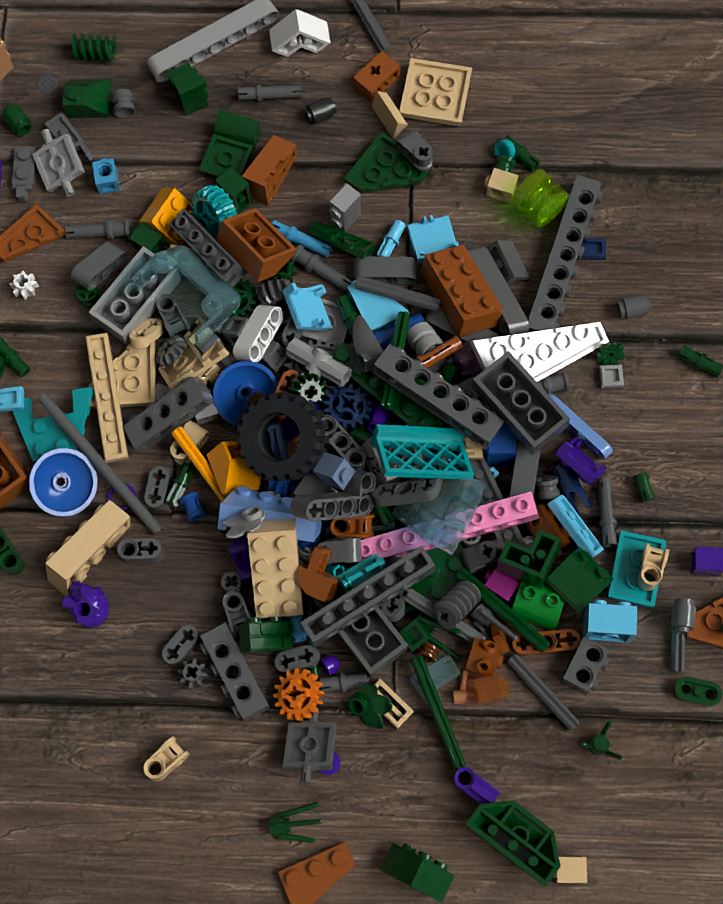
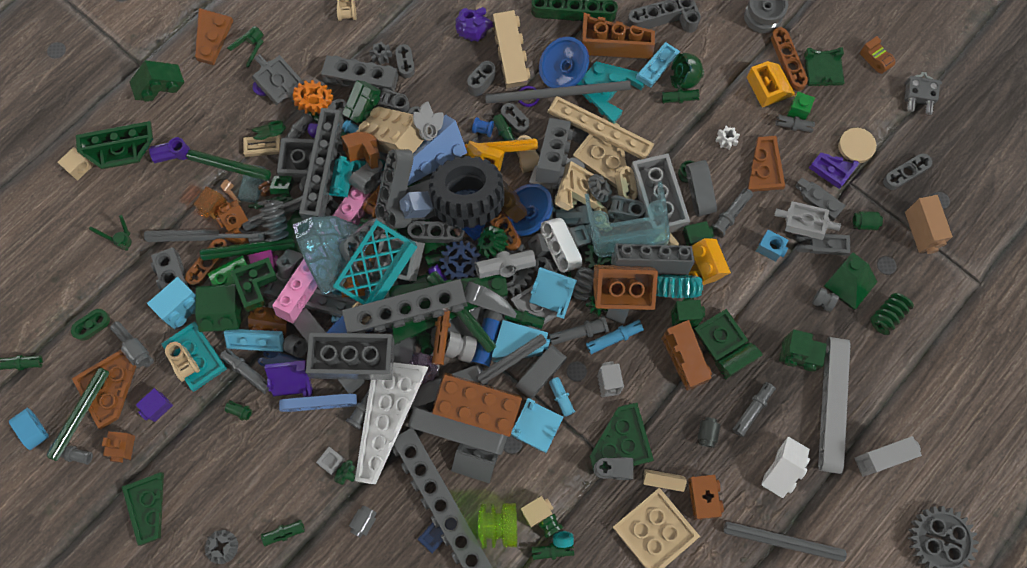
camera: 125 degrees right, 0 degrees up
(349, 242) = (585, 361): dark green wing -> none

